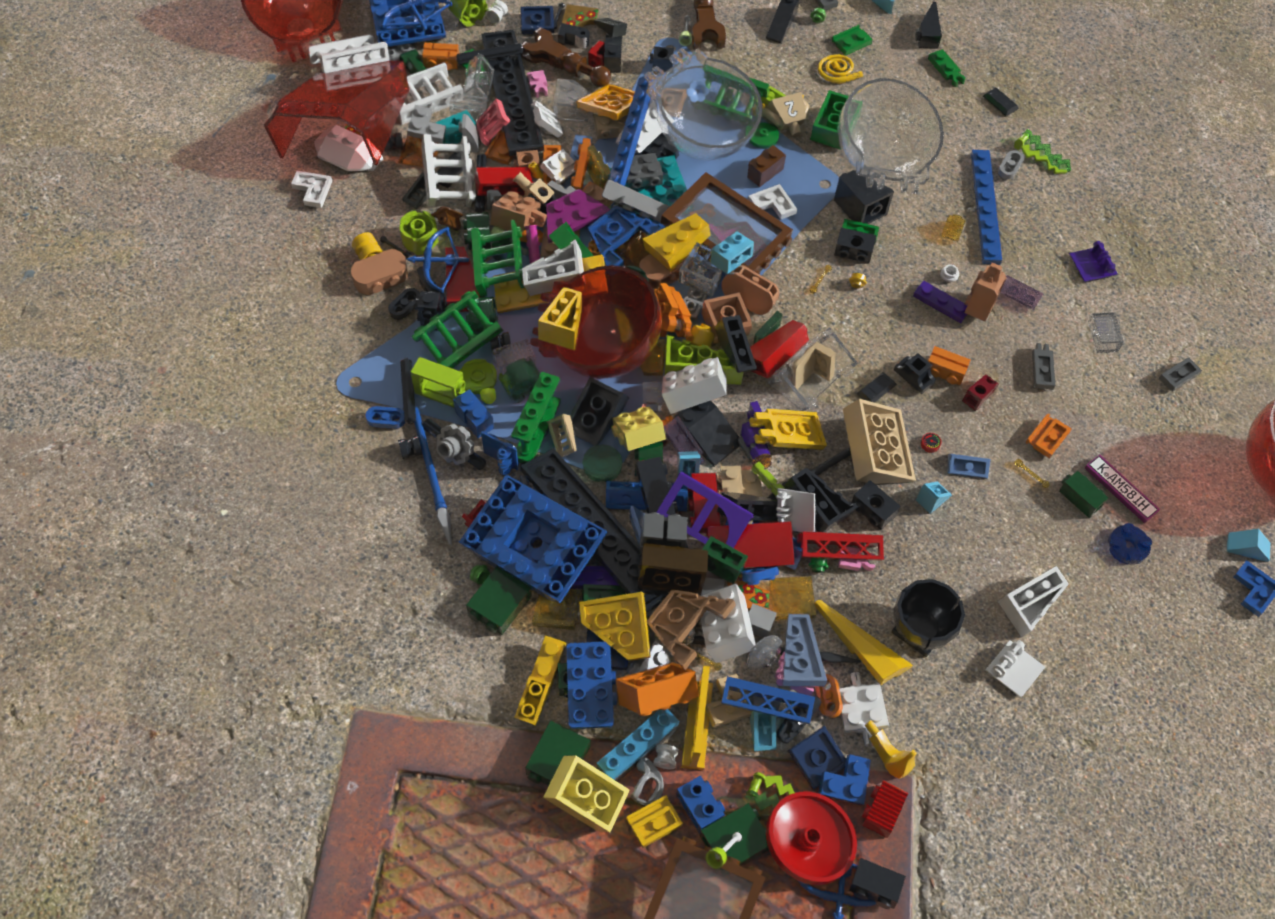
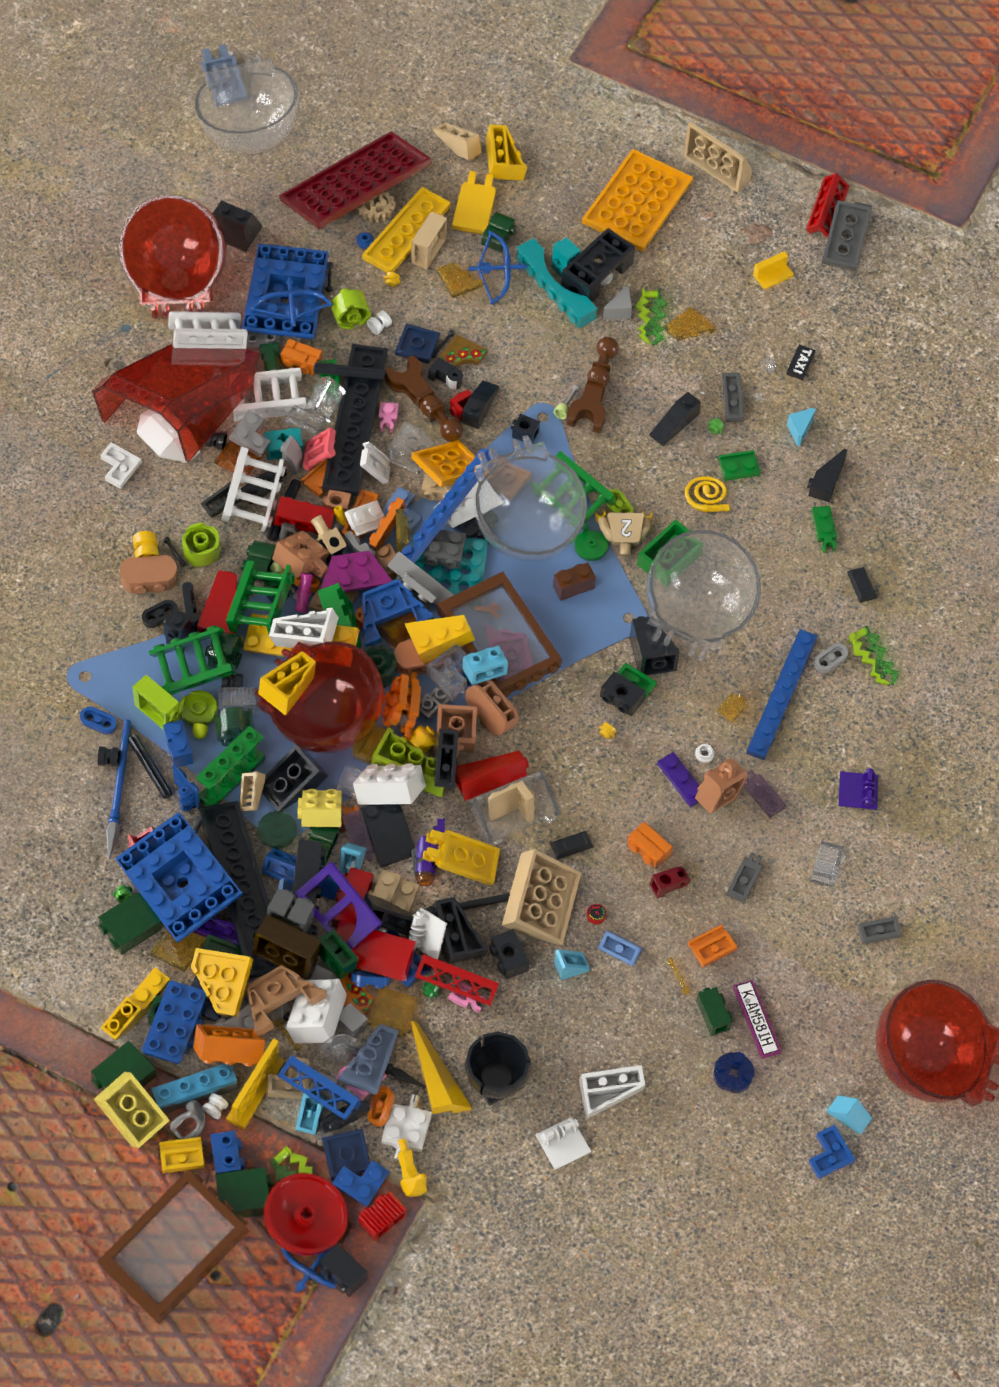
camera: 20 degrees right, 0 degrees up
(407, 391) = (127, 703): black axle -> none
(427, 259) = (215, 584): blue piece -> none
(448, 217) = (234, 540): reddish brown hinge -> none
(454, 444) = (147, 767): light grey plant -> none
(612, 27) = (489, 374): pearl dark grey slope -> none
(699, 94) = (525, 485): light blue plant -> none
(720, 853) = (212, 1194): lime hinge -> none
(766, 477) = (419, 894): lime axle -> none
(769, 327) = (496, 749): clear green tile -> none
(775, 198) = (567, 618): white plate -> none
(813, 289) = (560, 725): clear yellow hinge -> none
(916, 372) = (614, 842): black brick -> none

